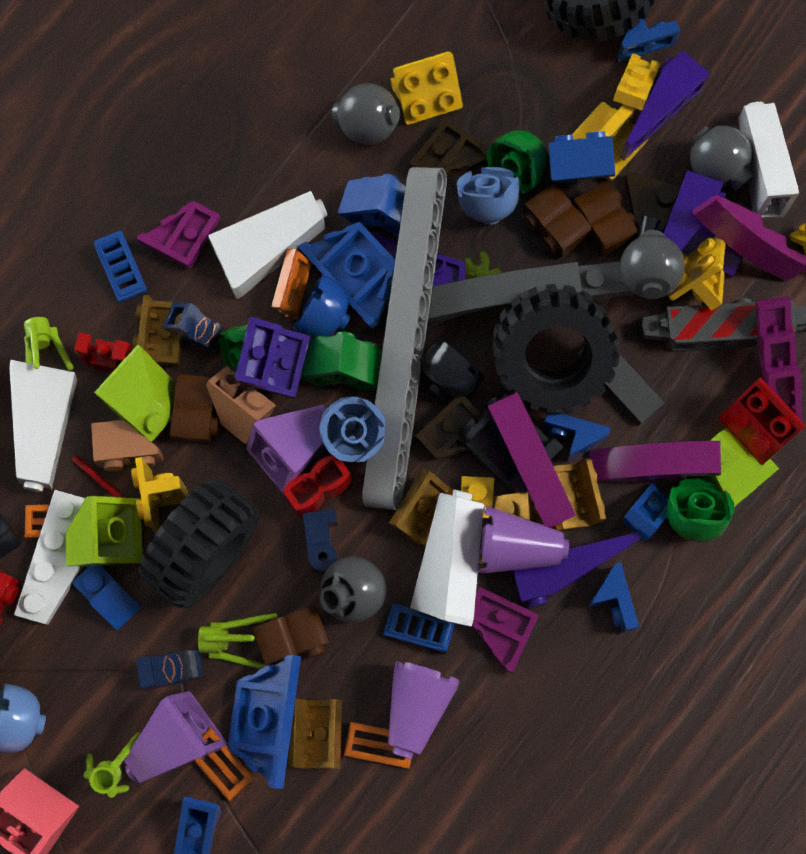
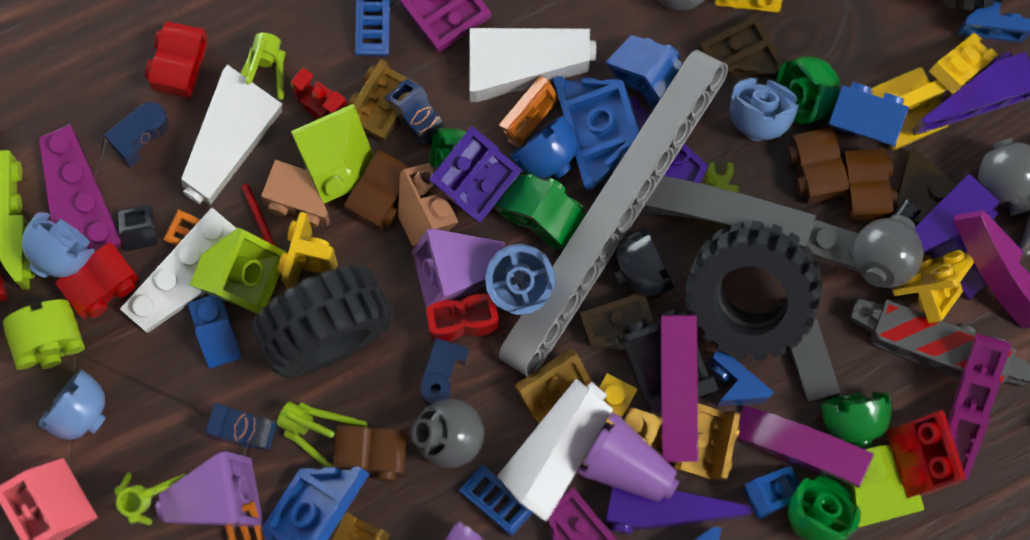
camera: 20 degrees right, 0 degrees up
(689, 416) = (857, 417): none -> green cylinder

